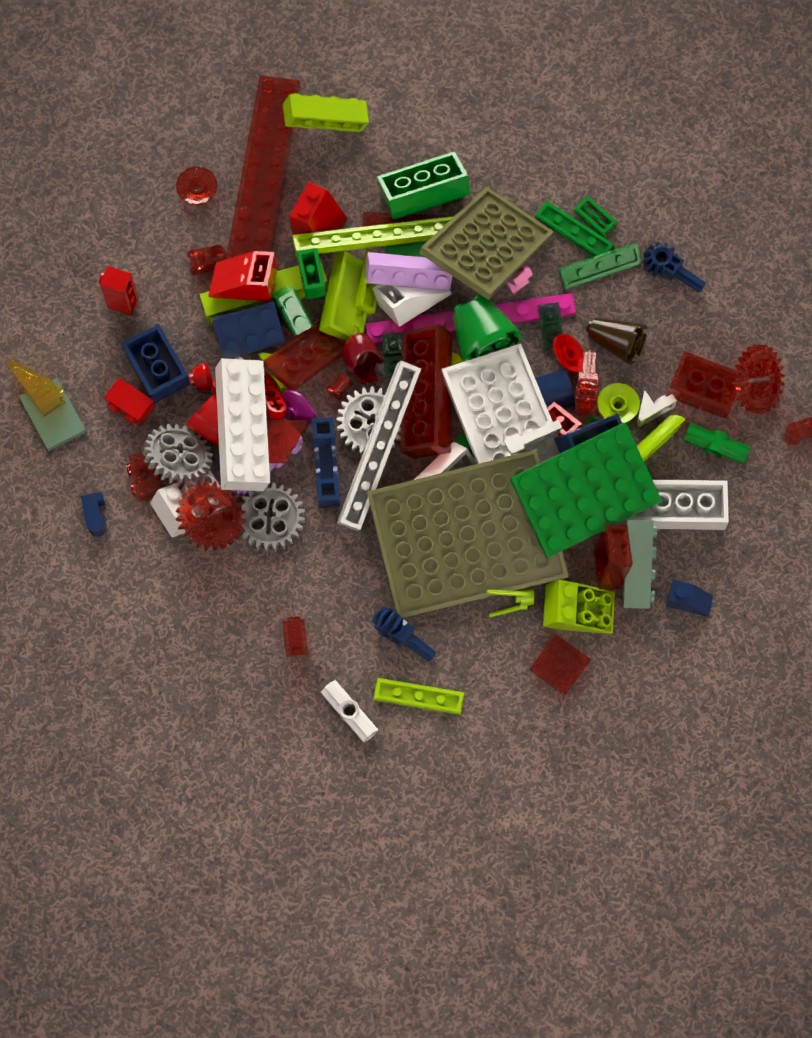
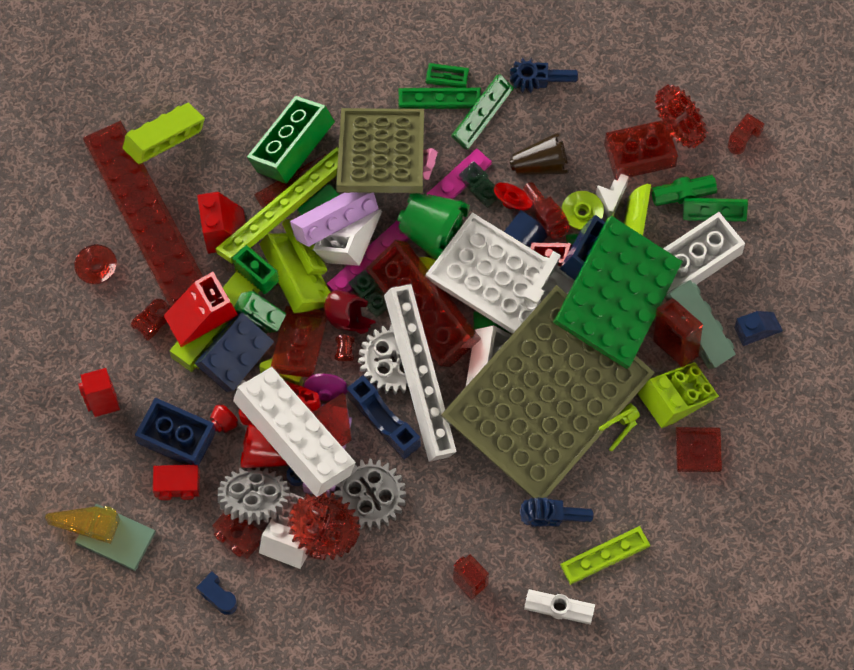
camera: 35 degrees left, 5 degrees down
(737, 481) = (705, 208): none -> green tile

